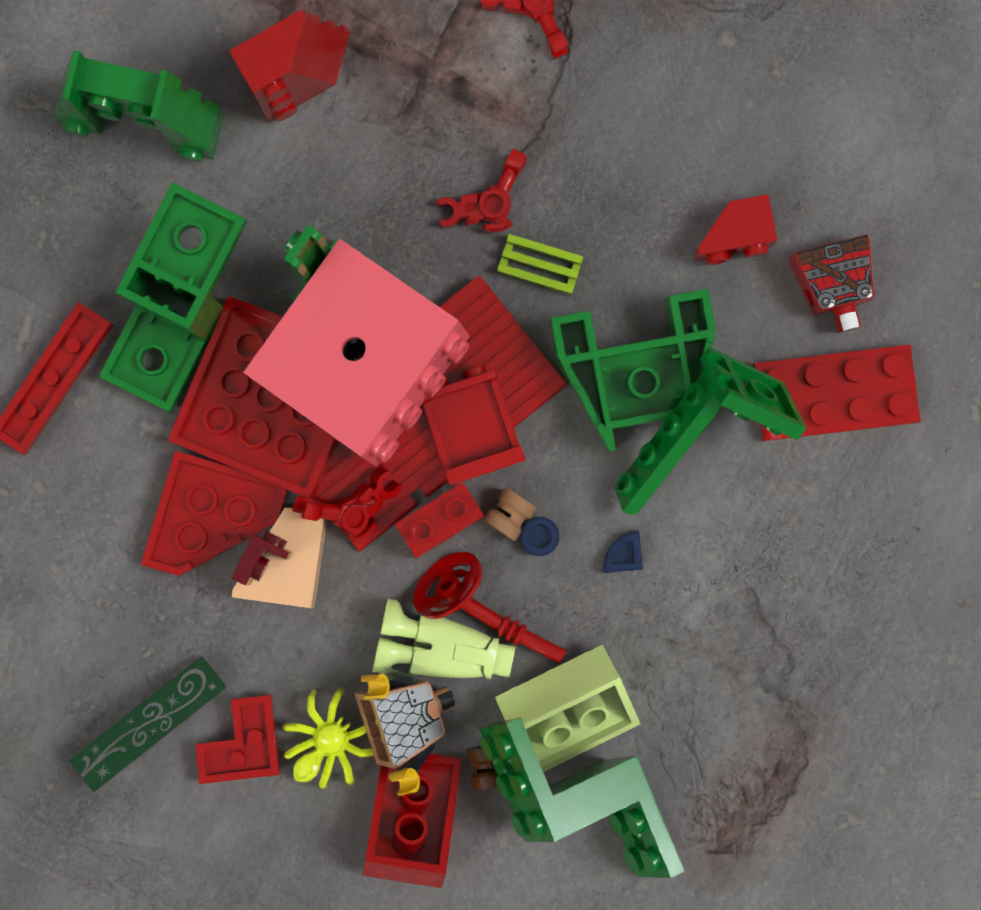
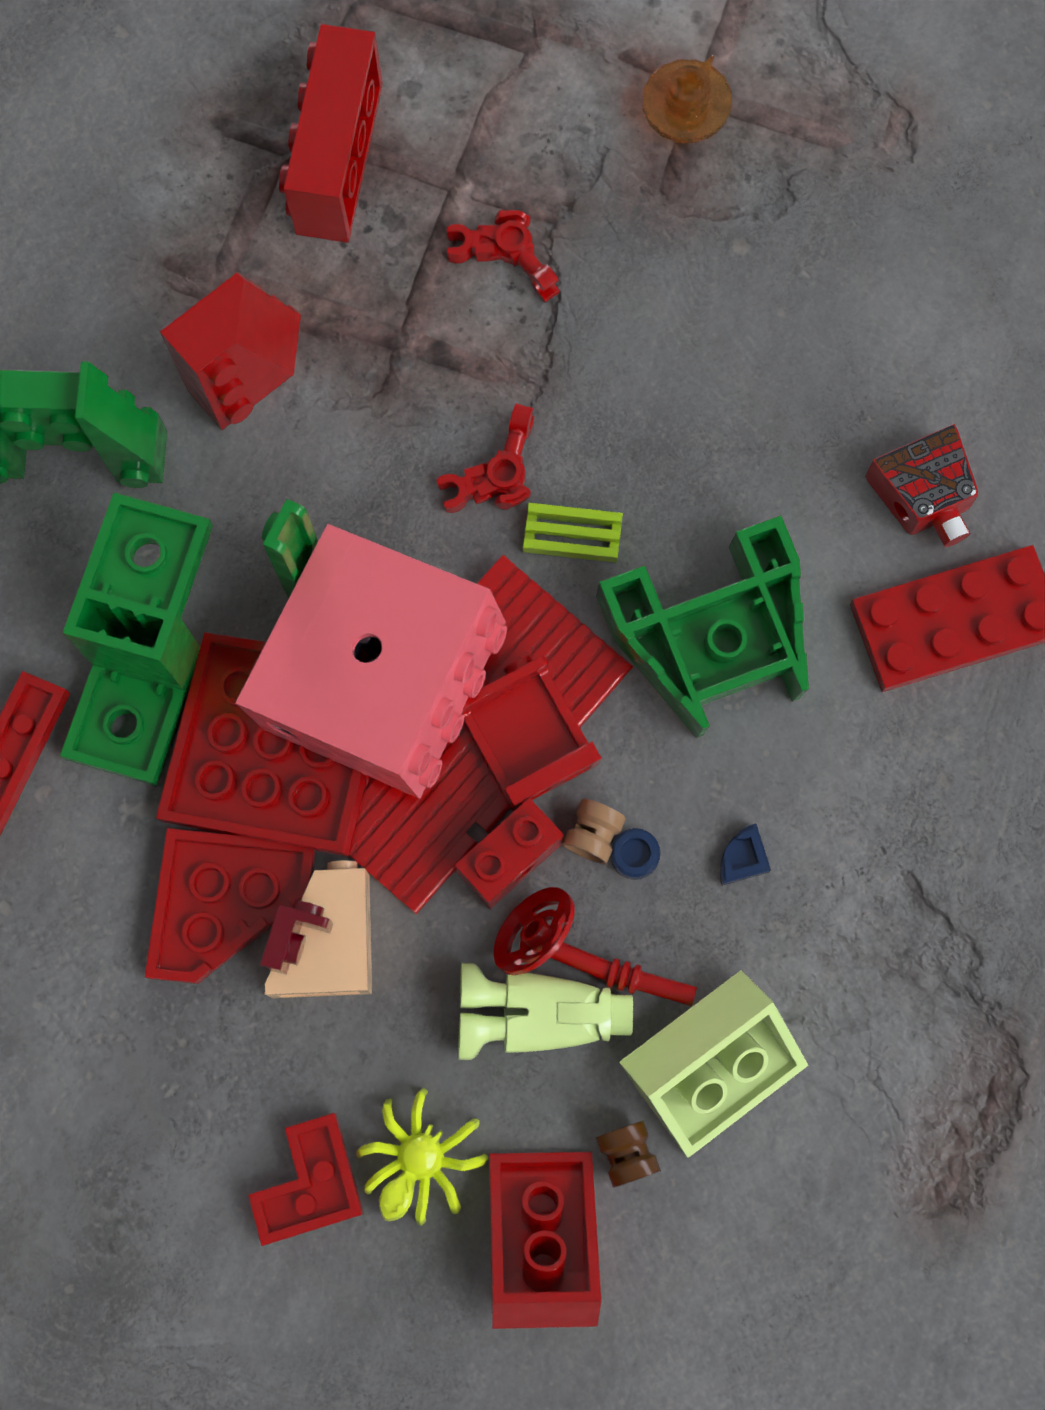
camera: 10 degrees left, 10 degrees down
(147, 724) = (182, 1181): dark green slope -> none
(353, 513) = (402, 862): red piece -> none
(402, 722) = (508, 1113): torso -> none
(556, 810) = (722, 1191): green bracket -> none
(725, 384) = (786, 678): green bracket -> none
(741, 228) = (803, 448): red slope -> none

